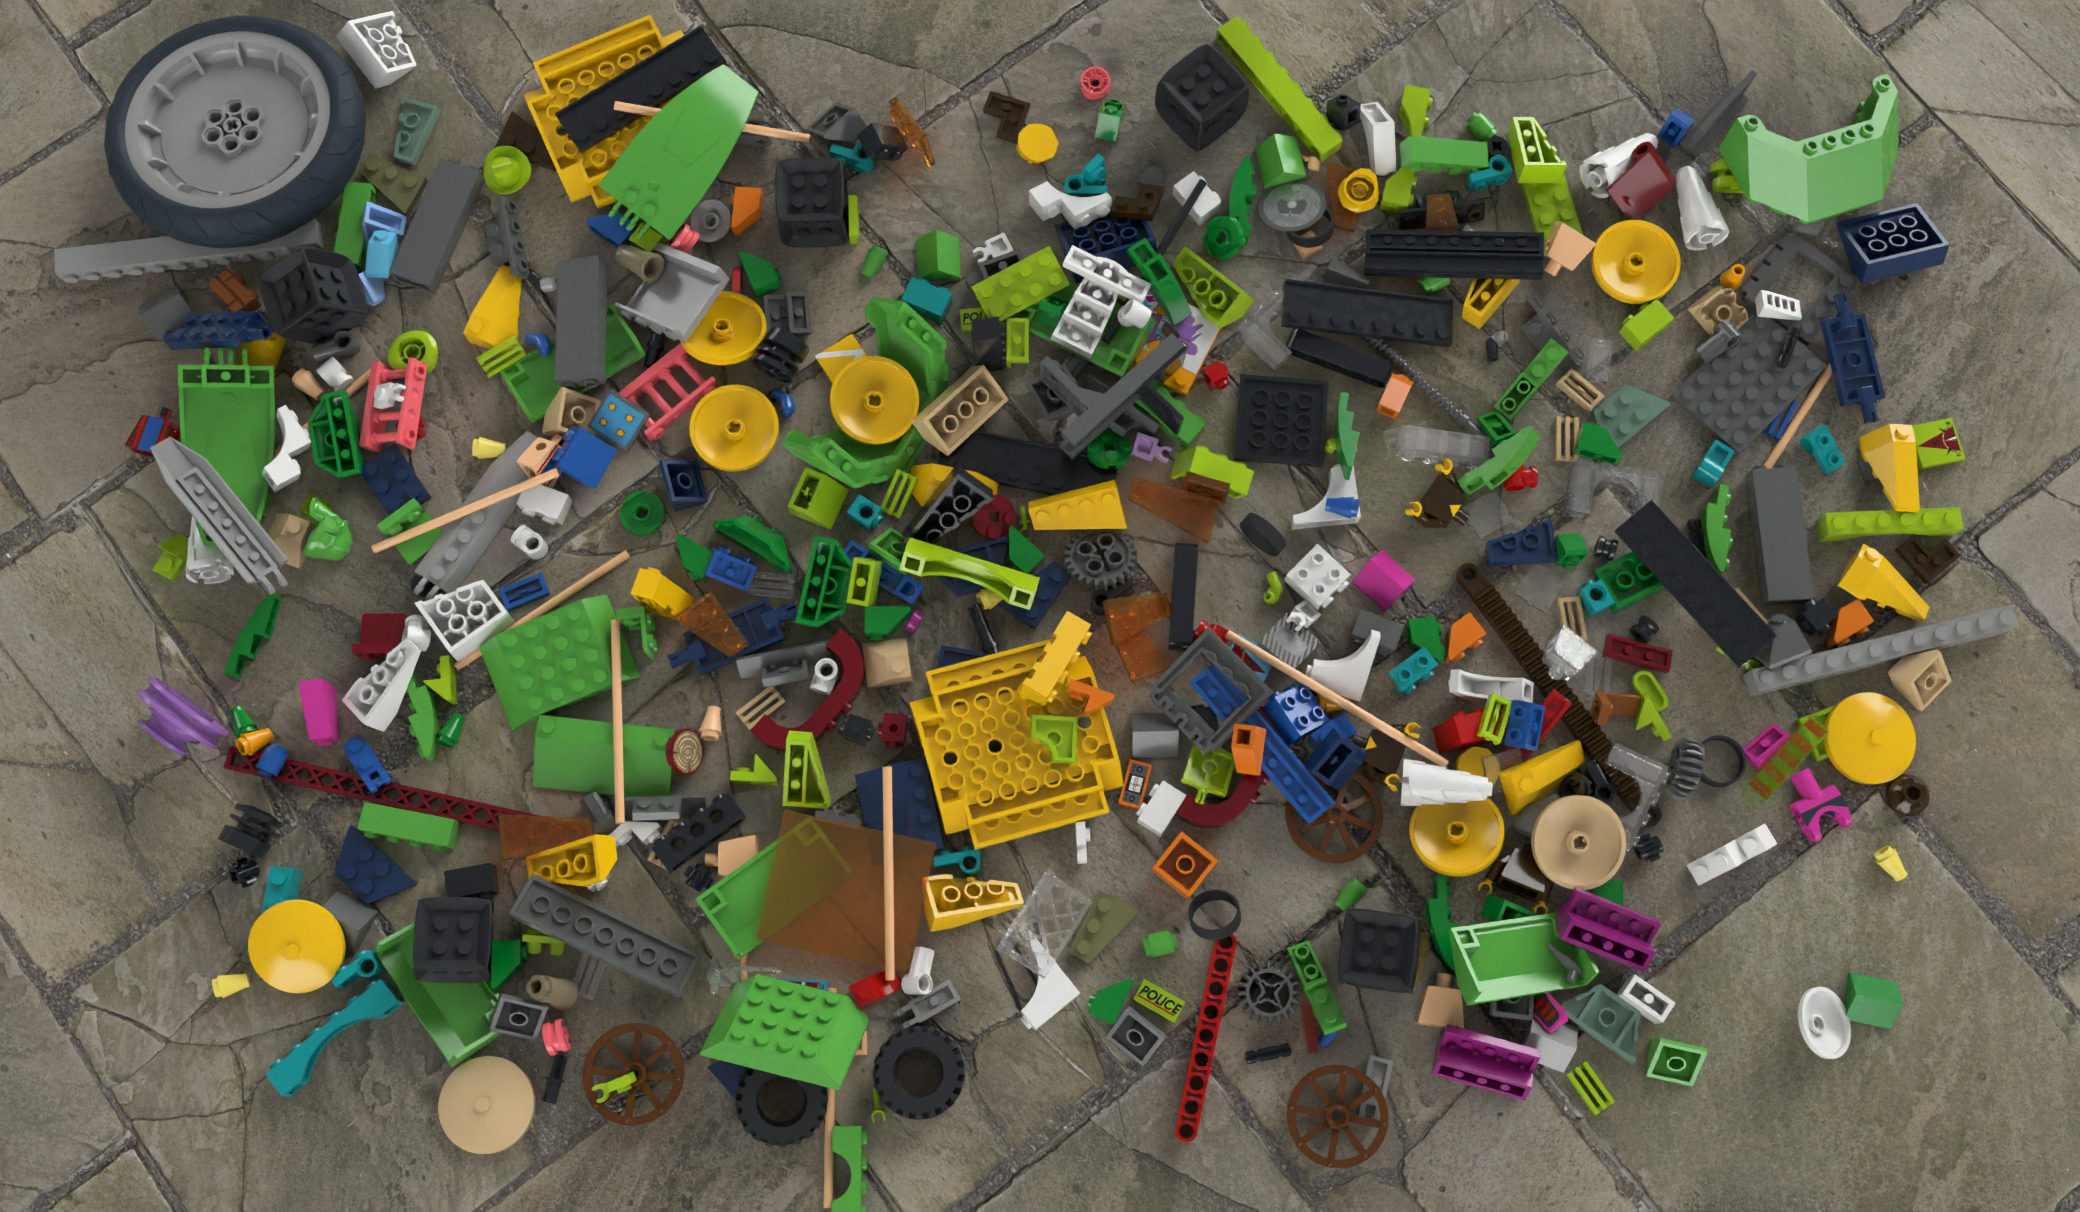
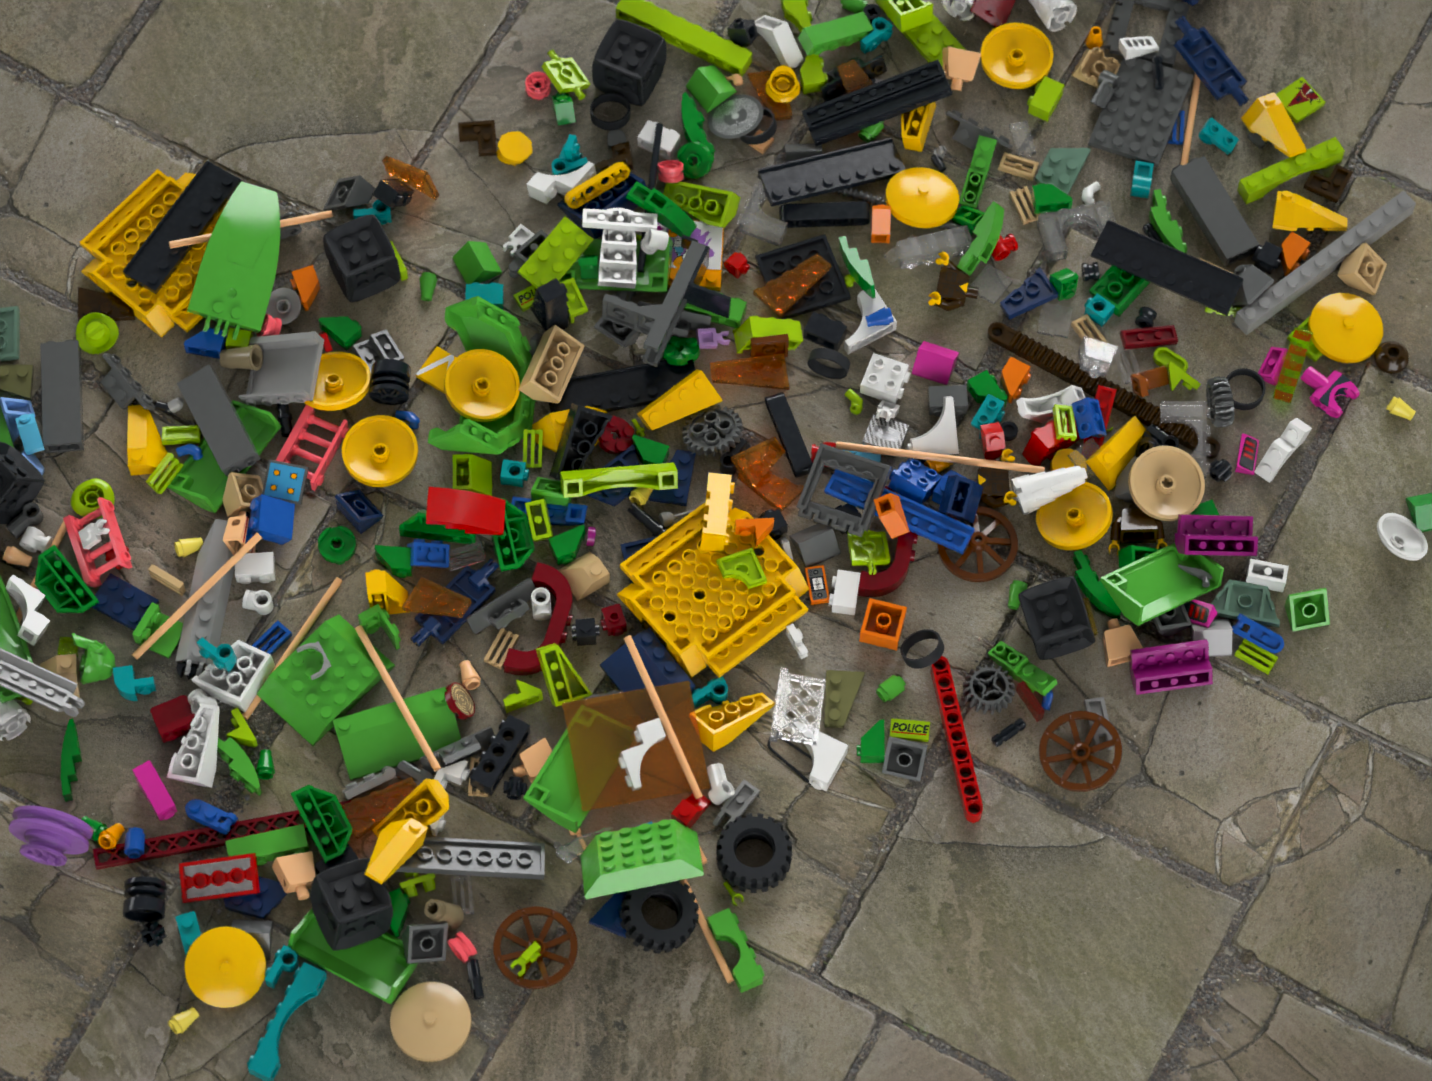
camera: 25 degrees left, 10 degrees down
(338, 842) = (219, 878): none -> red piece
(351, 577) = (129, 686): none -> teal brick
(422, 872) = (295, 873): none -> light nougat torso
(448, 476) = (167, 579): none -> tan tile
(450, 589) = (207, 650): none -> teal plate
(474, 828) = (323, 820): none -> green wedge
(525, 898) = (394, 847): none -> yellow wedge
(537, 319) = (181, 435): none -> lime tile
(548, 801) = (370, 781): none -> light grey plate
(558, 648) = (316, 646): none -> light grey cap
(785, 540) = (465, 511): none -> red slope
(862, 887) = (630, 759): none -> white arch
(1007, 636) = (667, 518): none -> light grey hinge
(1103, 226) = (598, 188): none -> yellow beam
(1119, 727) = (785, 545): none -> light grey tile
(1122, 692) = (780, 525): none -> black brick
(1129, 83) = (565, 75): none -> lime plate
(1164, 127) = (610, 97): none -> black tyre
(1192, 239) = (670, 171): none -> coral wheel
(1257, 428) = (792, 285): none -> clear orange wing
(1277, 493) = (825, 331): none -> black brick
(1404, 703) = (992, 440): none -> red arch
(1428, 695) = (1010, 430): none -> black tile
(1455, 383) = (922, 197): none -> yellow dish
(1604, 1065) = (1258, 634): none -> blue plate
(1644, 455) = (1087, 193): none -> white arm
(1687, 841) = (1247, 454): none -> slope

